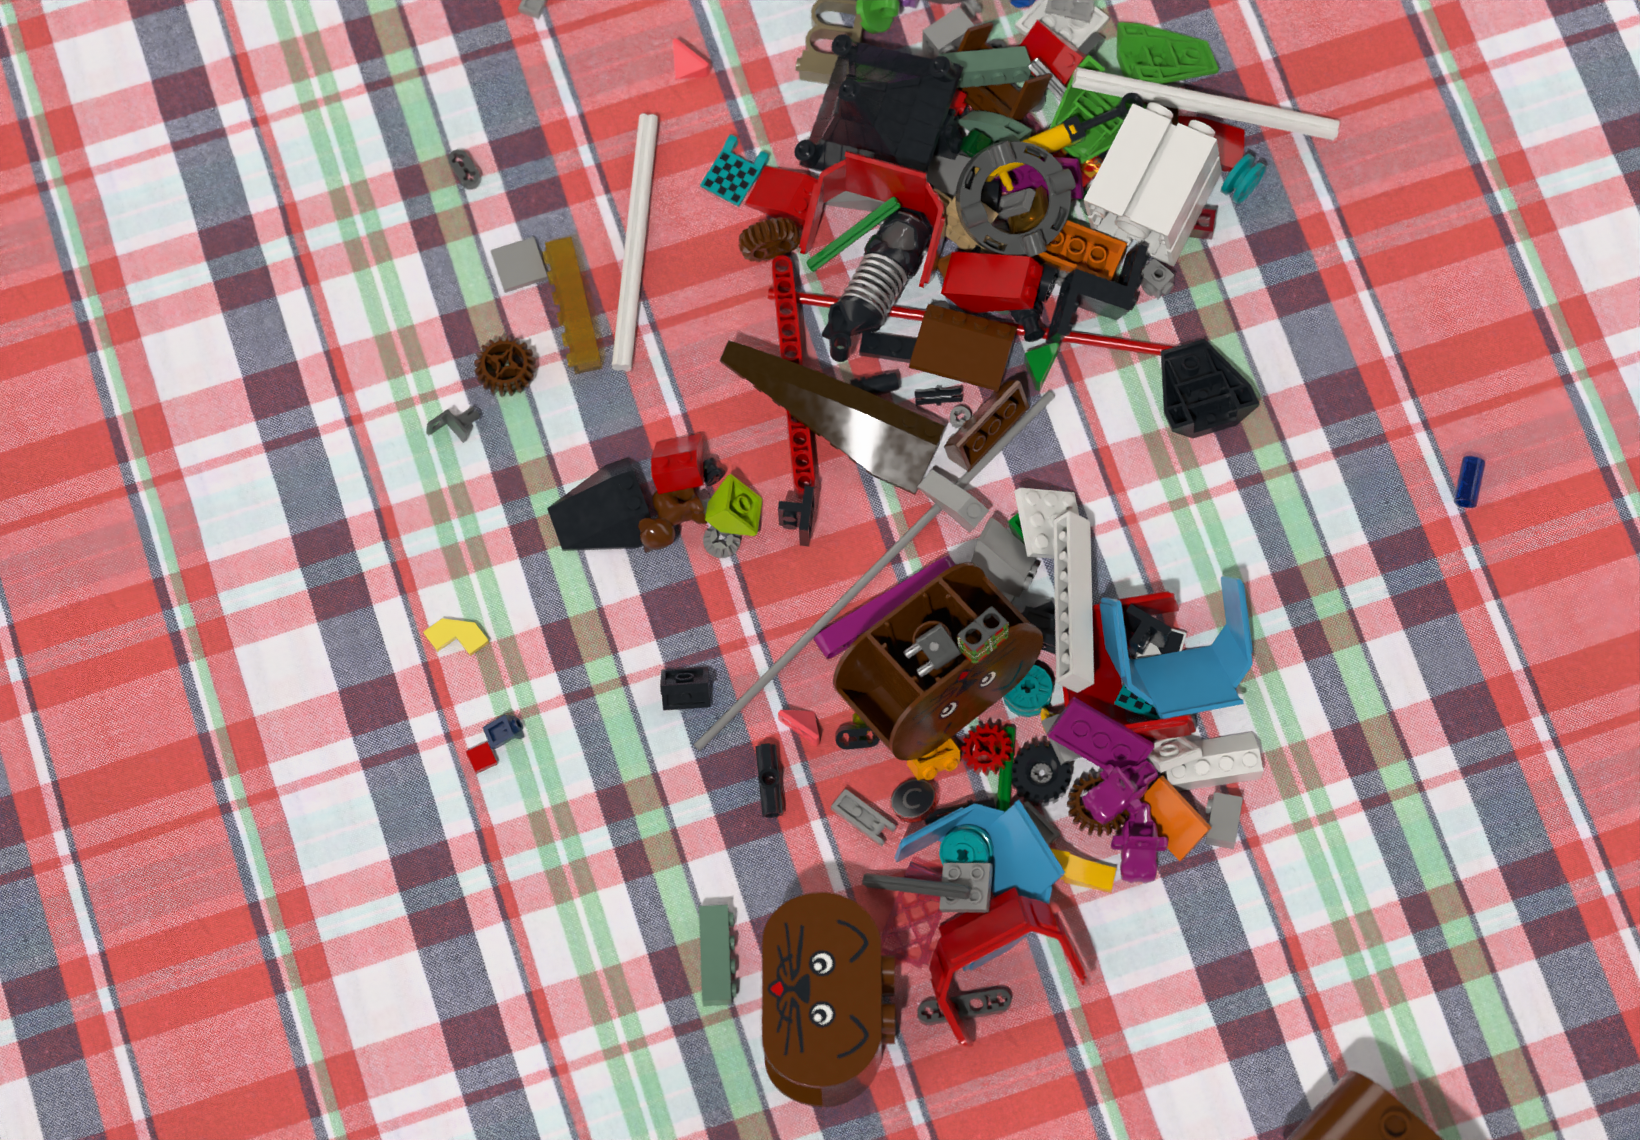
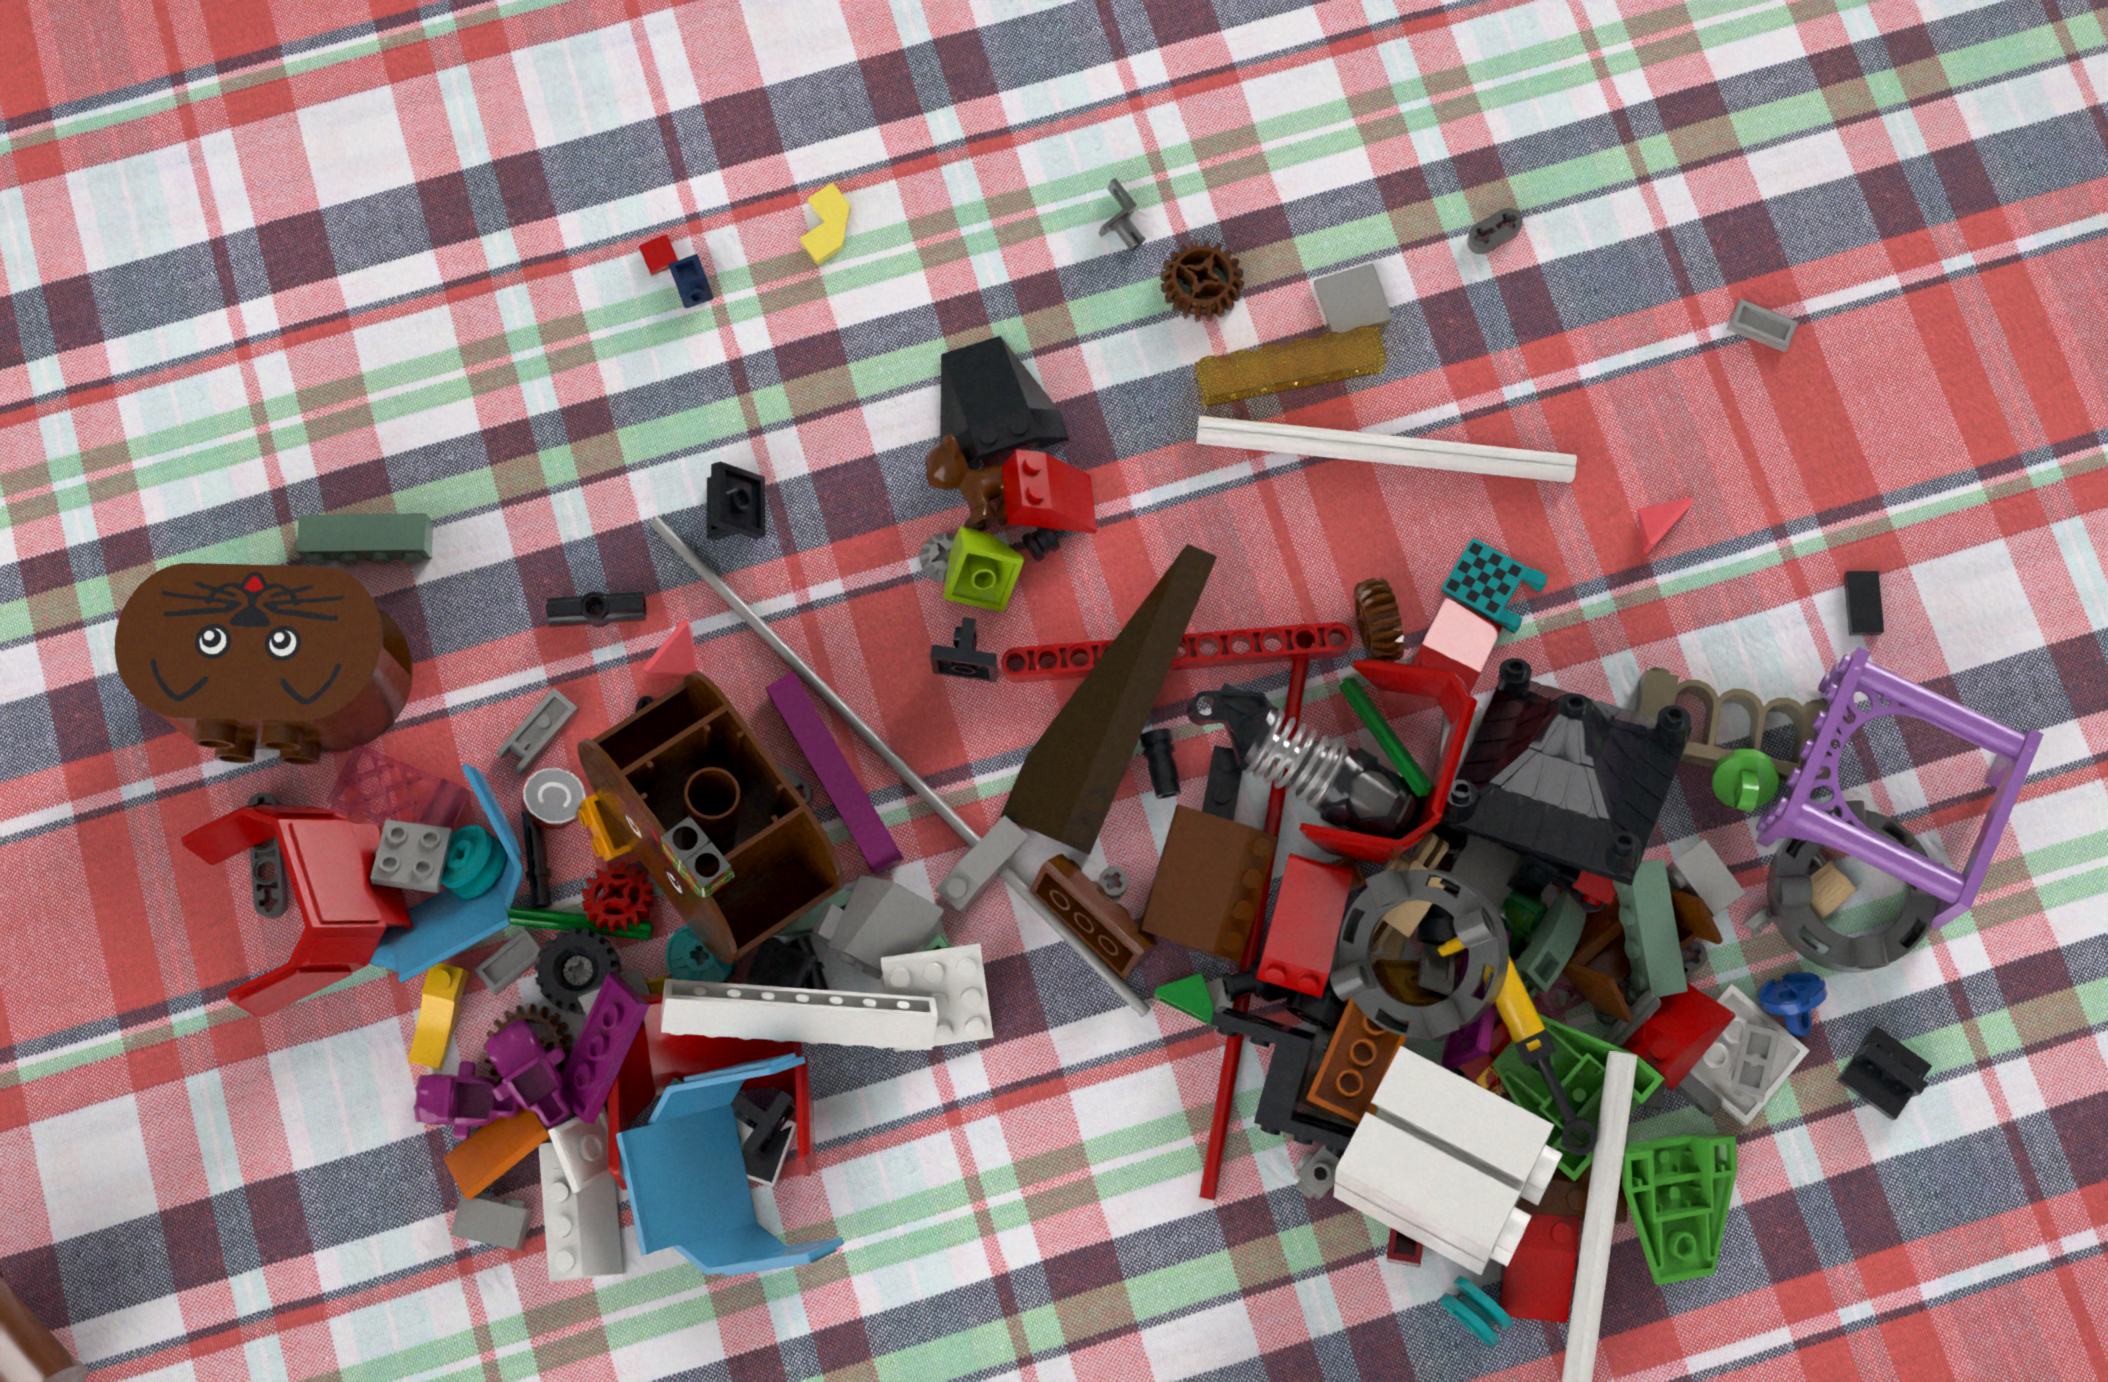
camera: 90 degrees right, 5 degrees up
(916, 886) = (421, 792): dark grey axle -> none
(936, 646) = (691, 794): dark grey piece -> none
(938, 396) = (1144, 851): black pin -> none
(1203, 390) = (1139, 1228): black wedge -> none

